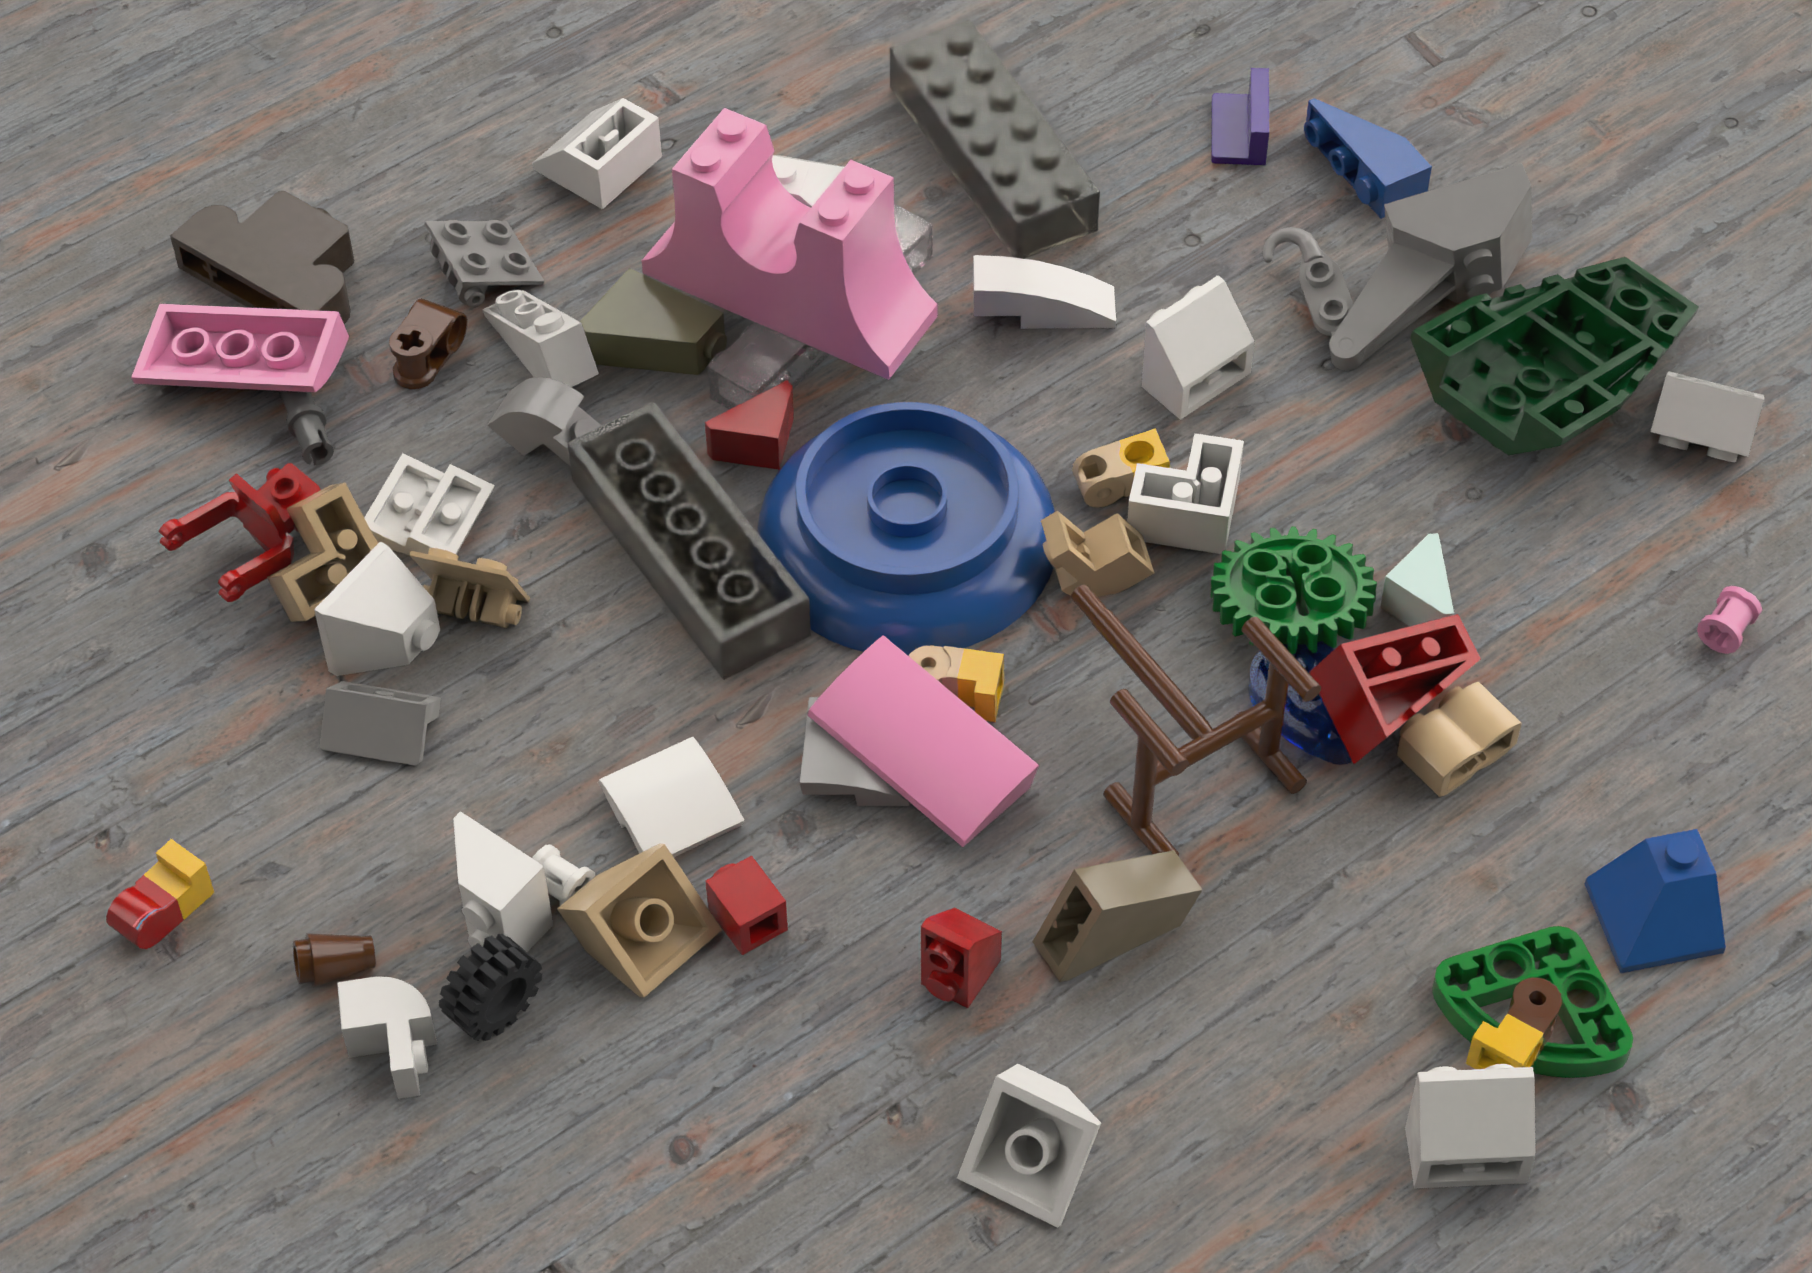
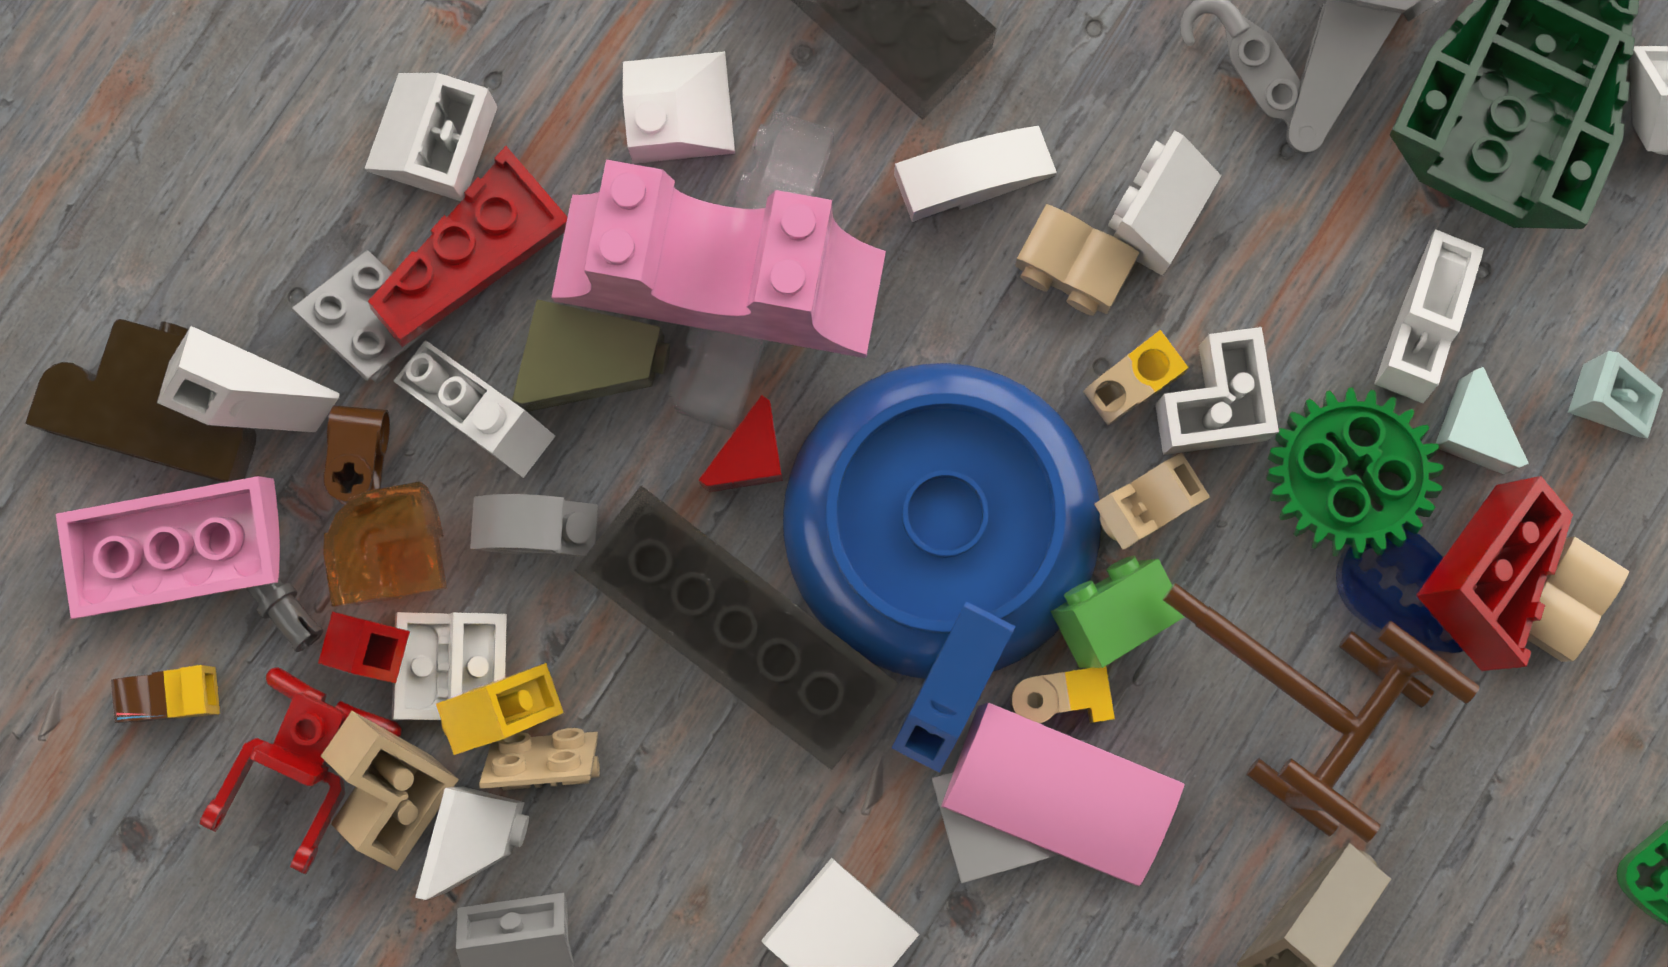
camera: 20 degrees left, 30 degrees up
(179, 457) = (166, 695): none -> leg
(358, 253) = (238, 389): none -> white slope
(363, 460) = (363, 647): none -> red brick
(416, 400) = (384, 546): none -> clear orange brick
(454, 523) = (499, 709): none -> yellow slope
(604, 229) = (480, 241): none -> red wing
(855, 613) = (953, 687): none -> blue slope
(1031, 620) = (1116, 613): none -> bright green brick
(1105, 376) = (1075, 260): none -> tan brick
(1406, 503) = (1430, 317): none -> white slope
(1561, 600) = (1616, 395): none -> light aqua slope

